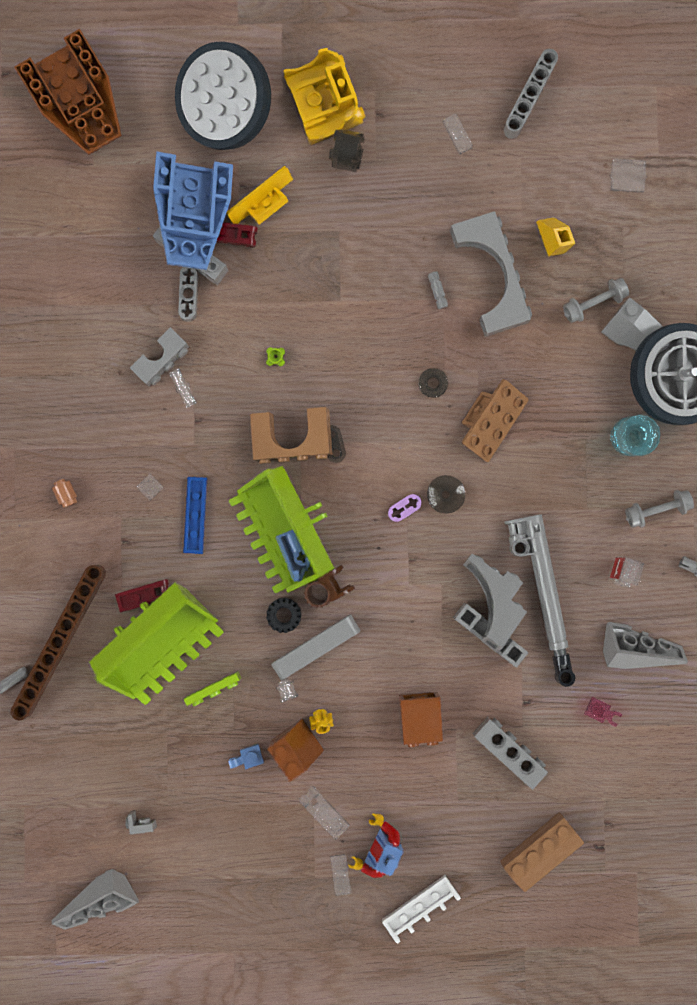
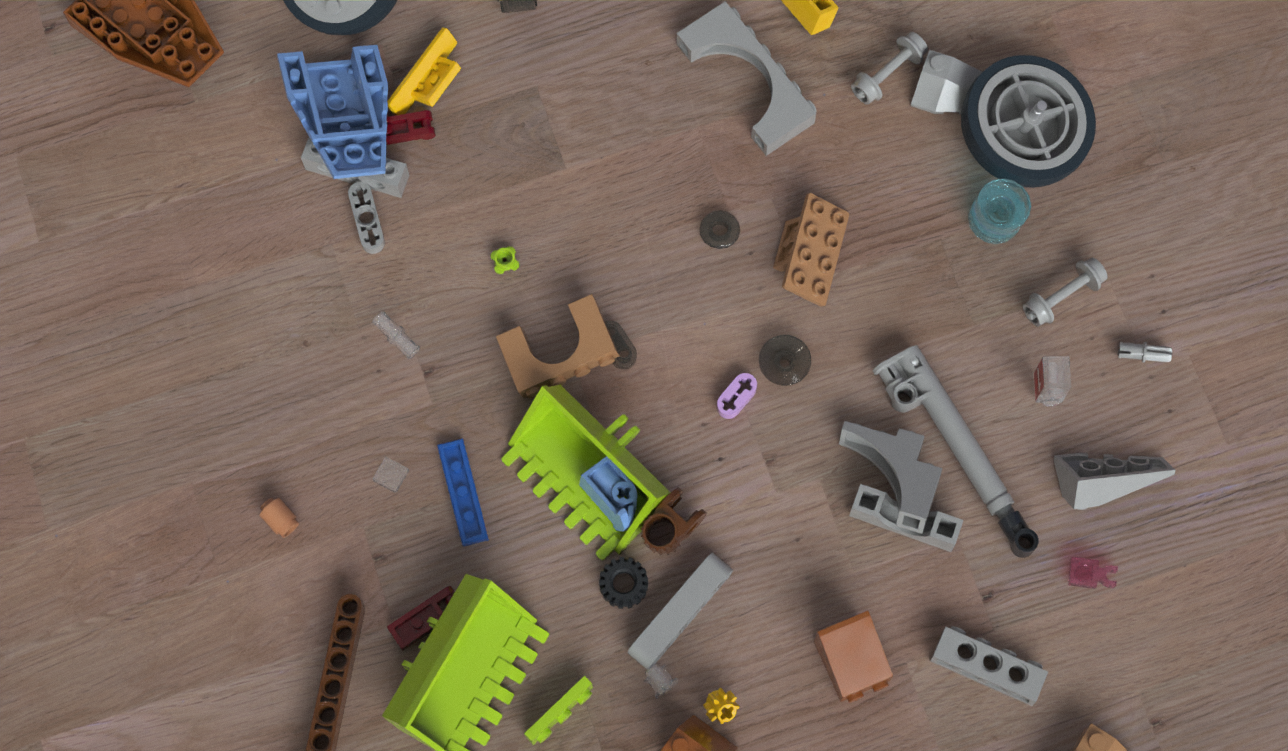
camera: 20 degrees left, 15 degrees down
(173, 347) = (346, 325): light grey arch -> none
(437, 290) = (686, 117): light grey axle -> none

